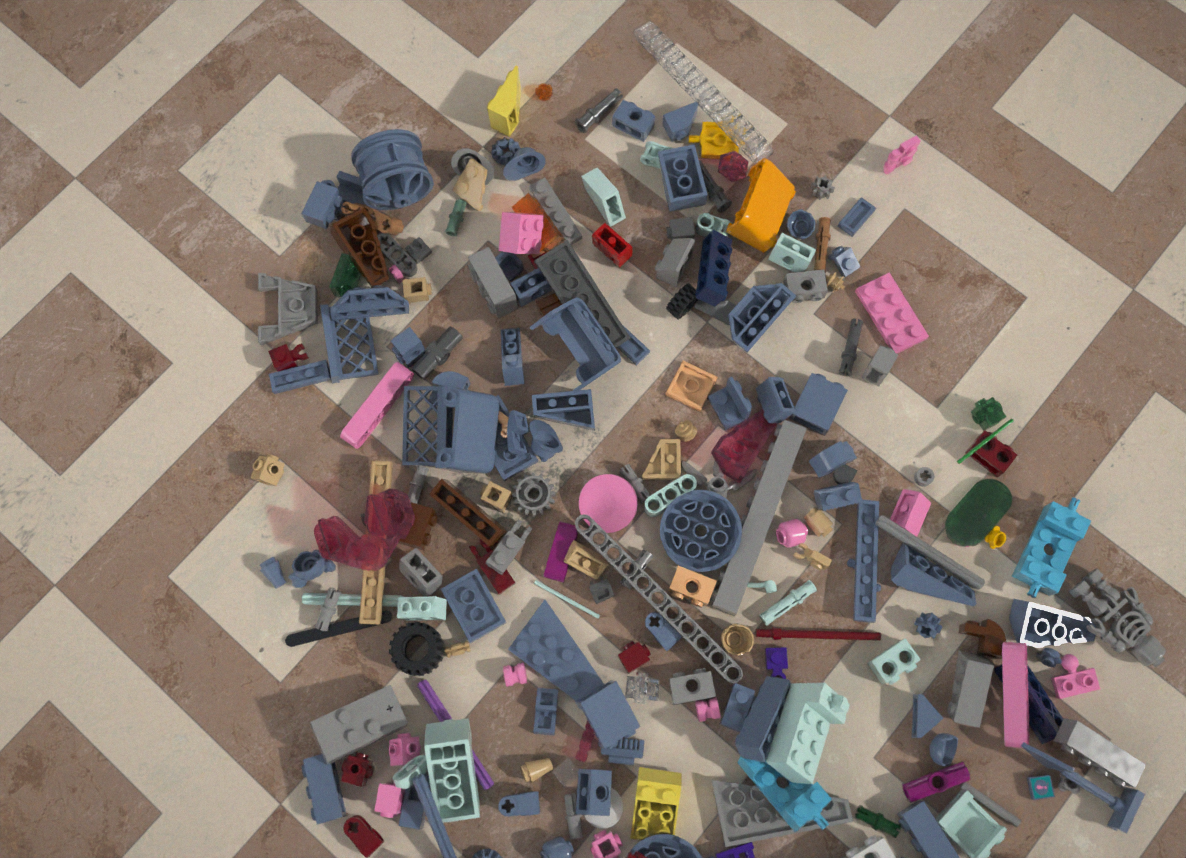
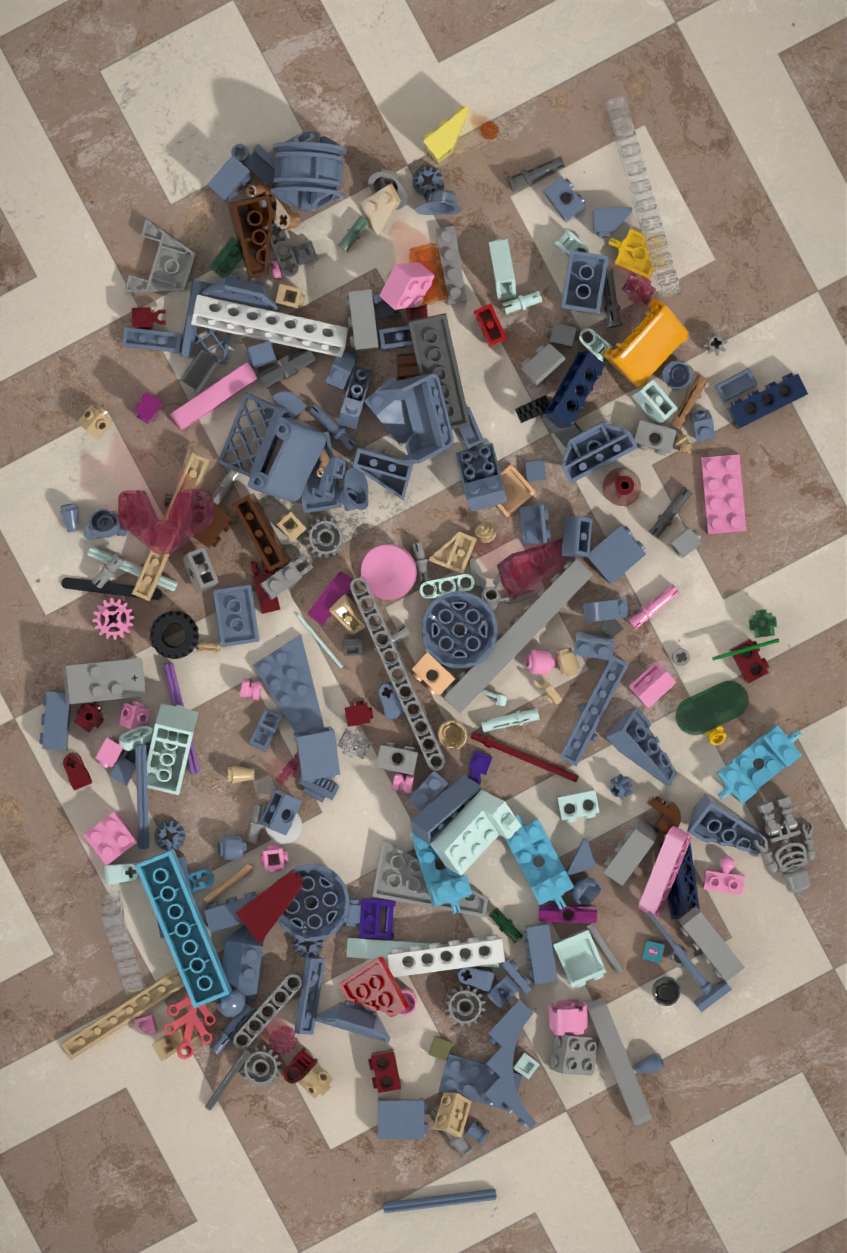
camera: 20 degrees right, 15 degrees up
(316, 436) = (149, 408): none -> magenta brick
(352, 649) = (120, 624): none -> bright pink gear
(353, 385) = (200, 370): none -> dark grey panel
(397, 318) = (269, 326): none -> white brick
(421, 608) = (190, 602): light aqua brick -> none
(489, 338) = (341, 370): none -> sand blue slope
(509, 394) = (338, 432): none -> sand blue pin
(524, 804) = (219, 798): sand blue piece -> none
(550, 355) = (391, 413): none -> sand blue slope
(632, 218) = (522, 302): none -> light aqua pin
(655, 803) = (328, 840): light yellow slope -> none
(661, 382) = (481, 477): none -> sand blue slope
(708, 358) = (535, 470): none -> sand blue tile
(795, 340) = (613, 490): none -> dark red cone
(873, 445) = (650, 609): none -> bright pink pin
(875, 239) = (796, 391): none -> dark blue brick
(900, 754) = (549, 880): none -> medium azure brick
(902, 155) = (807, 344): bright pink plate -> none
(930, 552) = (652, 725): light grey axle -> none
(1049, 657) = (711, 853): sand blue plate -> none
(1076, 825) = (666, 991): none -> dark grey hair

